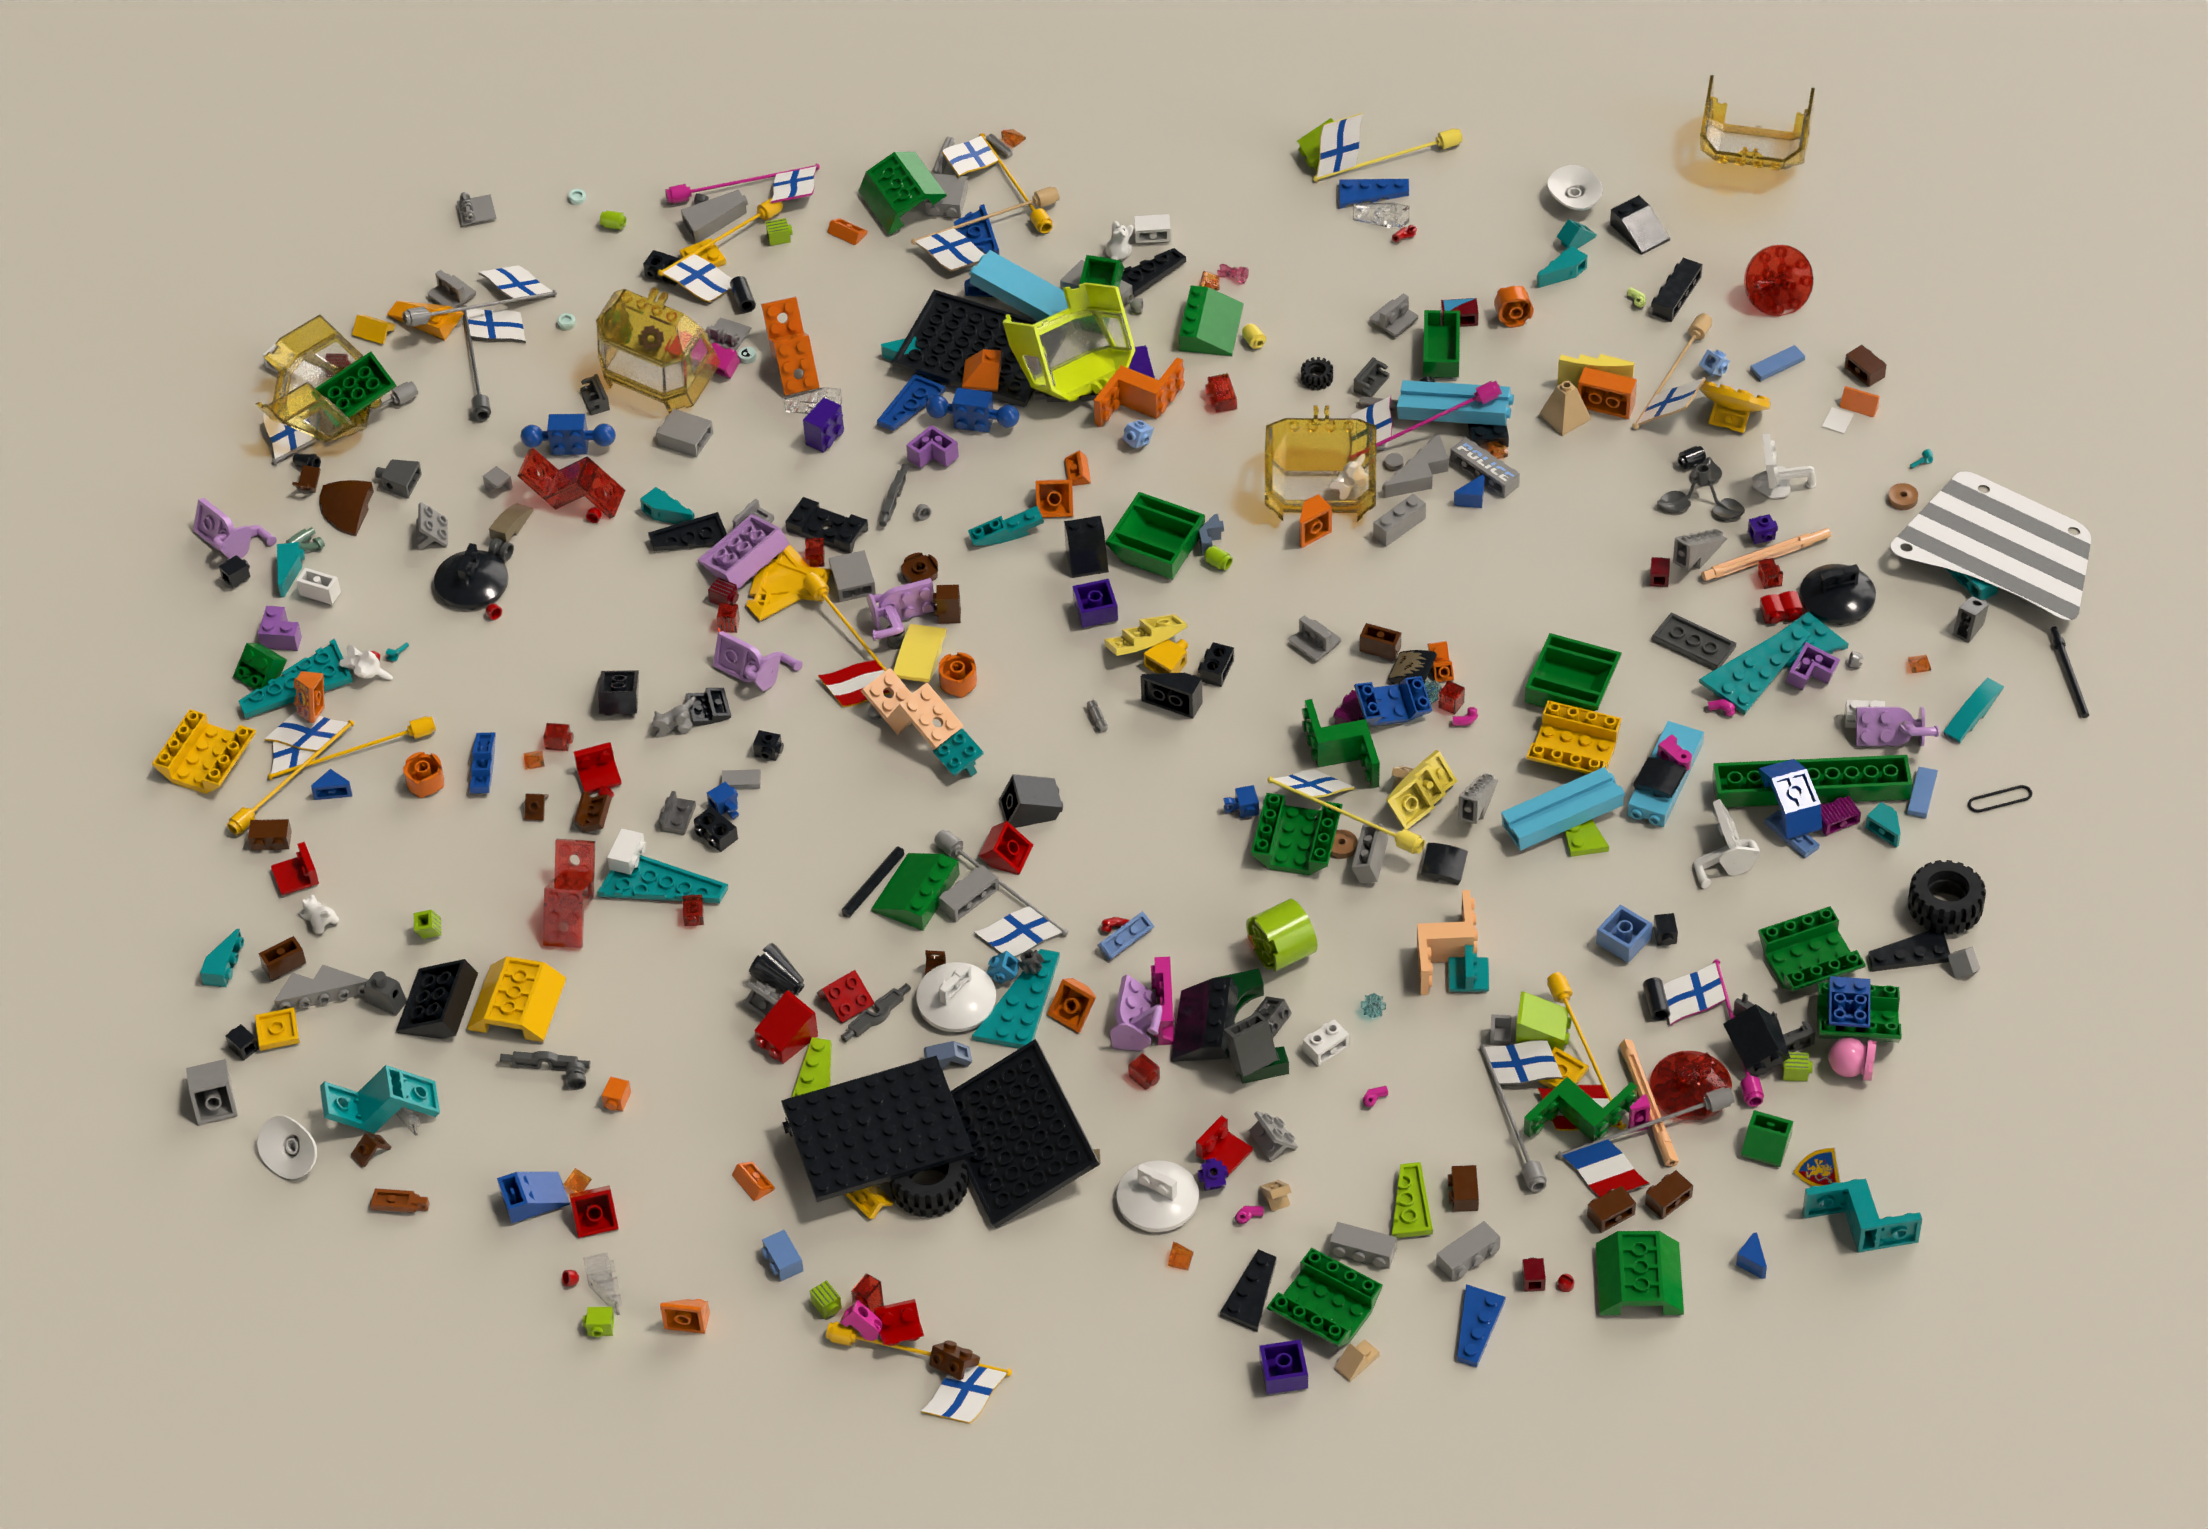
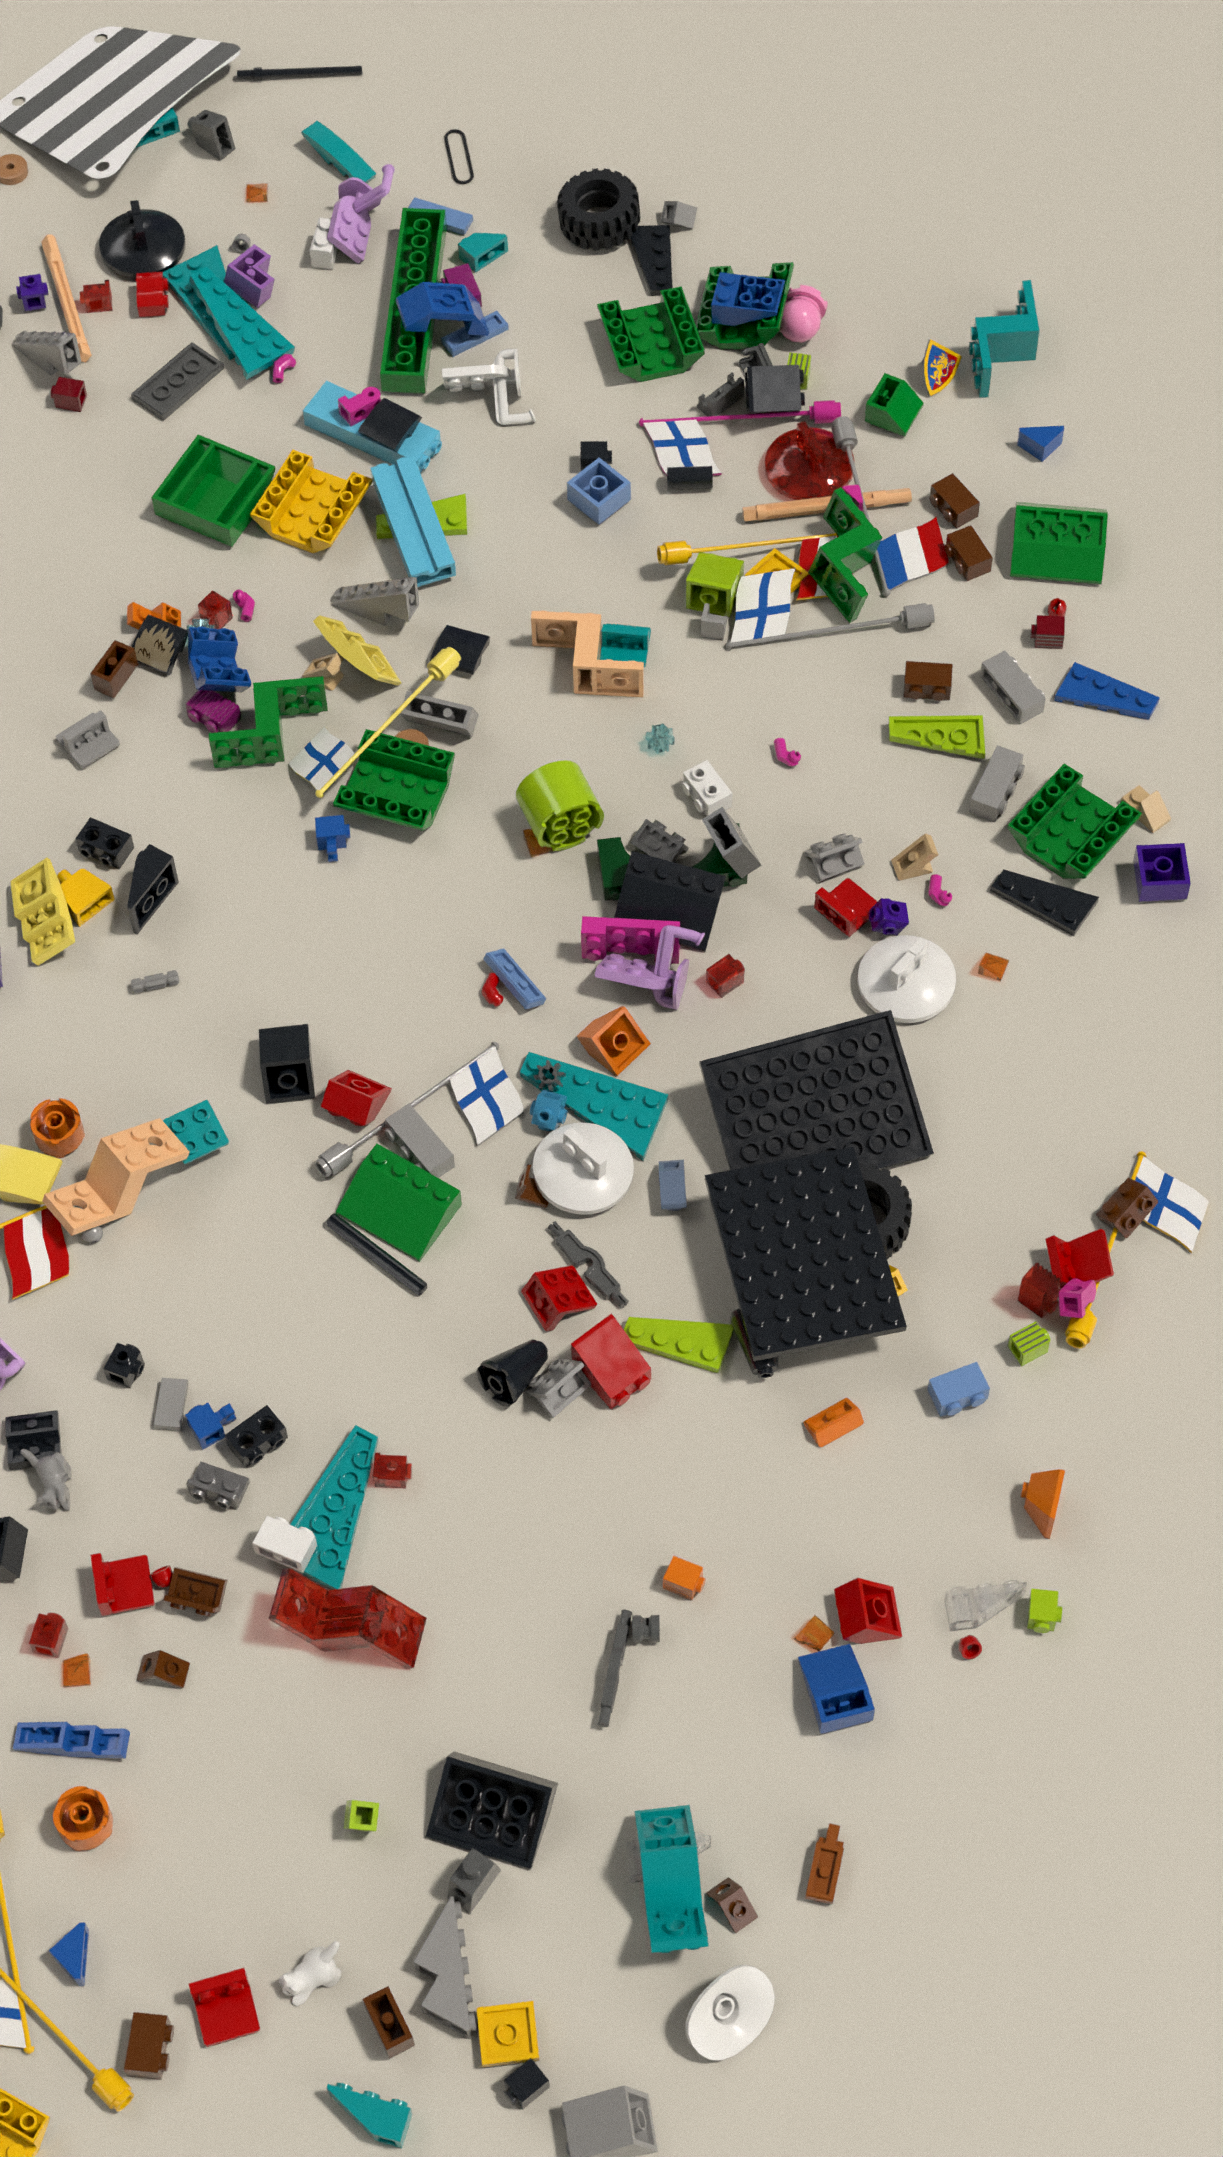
camera: 85 degrees left, 10 degrees up
(518, 996) = (507, 1703): yellow slope -> none

